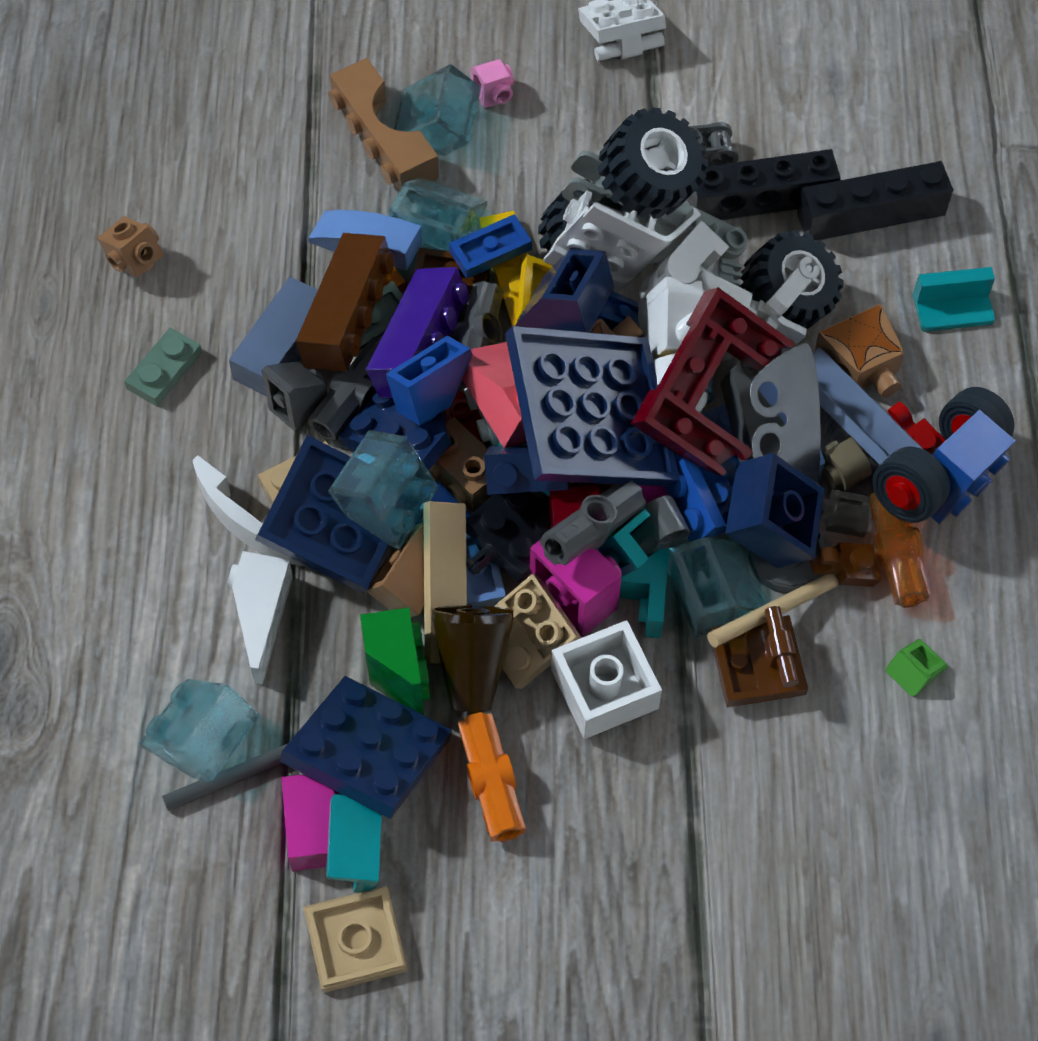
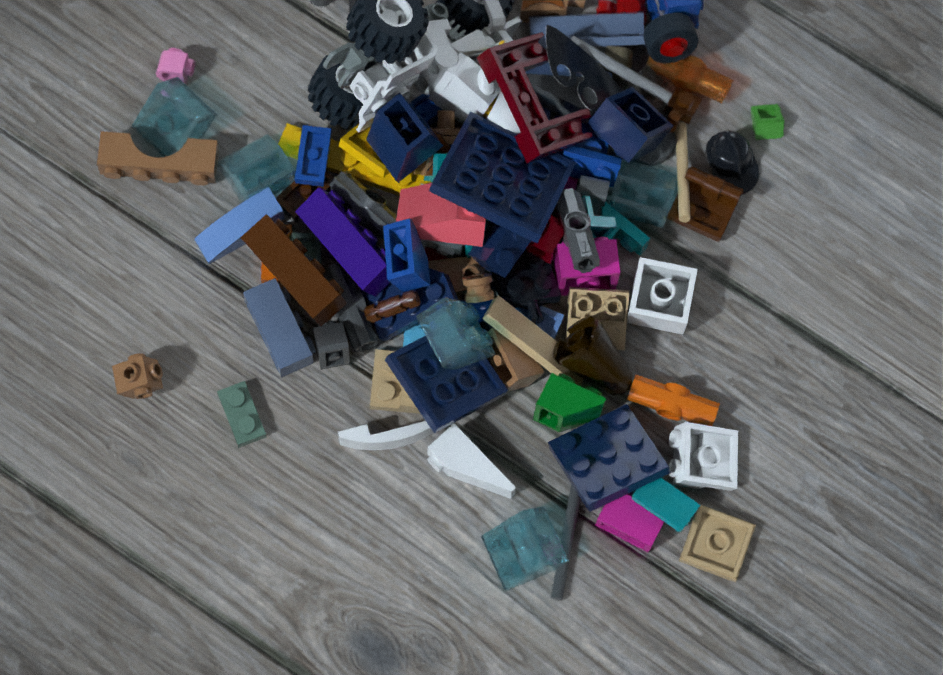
camera: 60 degrees left, 10 degrees up
(375, 413) = (392, 306): none -> reddish brown axle
(447, 853) = (704, 456): none -> white plate
(458, 479) = (478, 288): none -> medium nougat wheel
(835, 468) = (624, 71): none -> light grey bar
(837, 661) = (733, 160): none -> black piece

